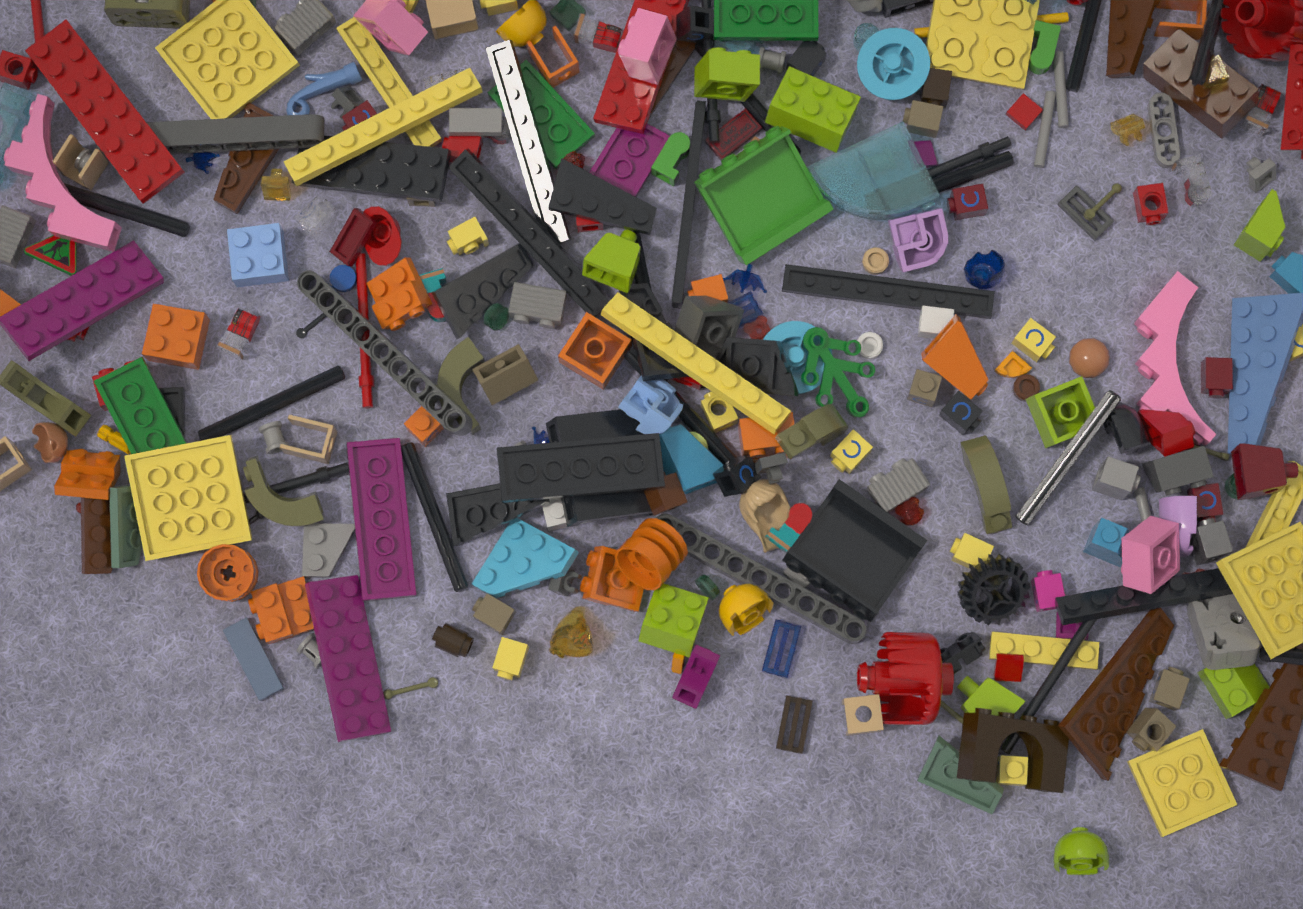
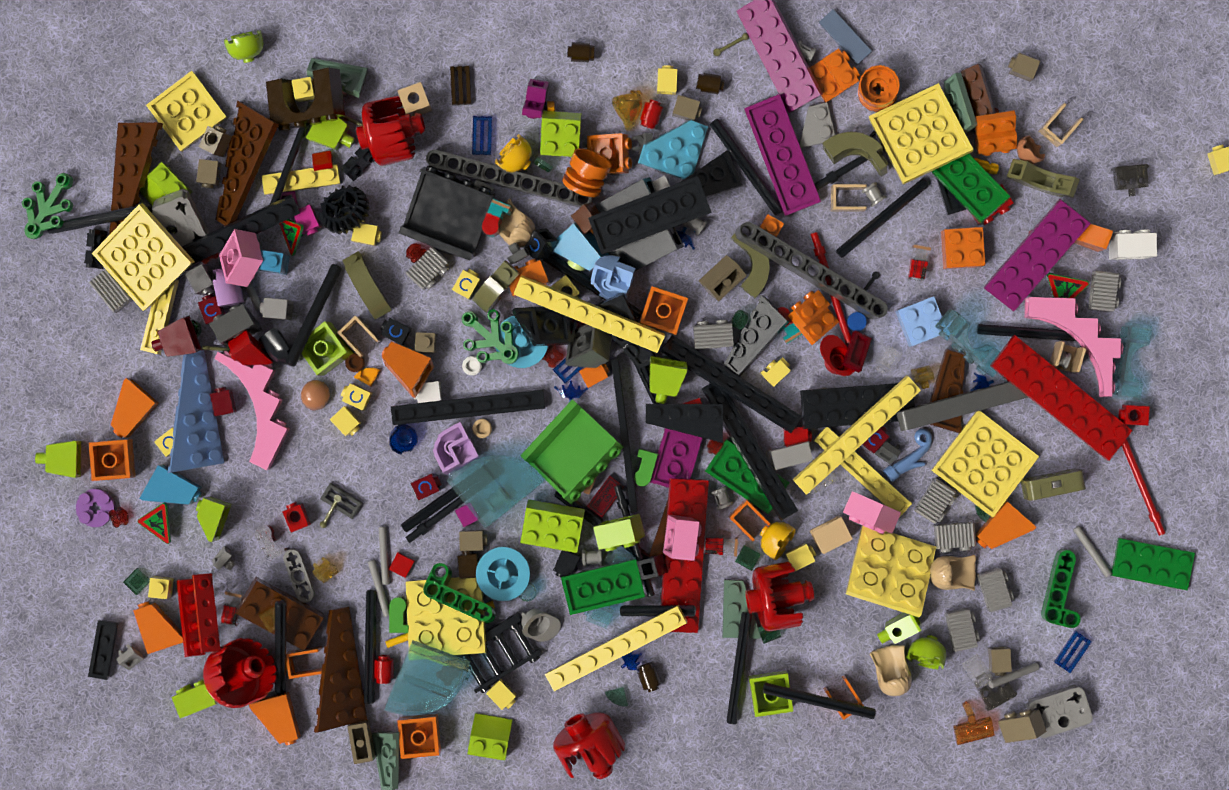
camera: 165 degrees right, 10 degrees up
(25, 556) = (1023, 66): none -> dark tan brick
(213, 225) = (956, 328): none -> clear light blue arch
(543, 618) = (651, 114): none -> red brick
(581, 94) = (722, 498): none -> light grey bush
(617, 727) = (581, 52): none -> dark brown brick
(956, 42) = (460, 598): none -> green beam
(1025, 410) = (356, 319): none -> tan piece
(1056, 311) = (346, 421): none -> light yellow brick
(1072, 575) = (292, 233): none -> piece

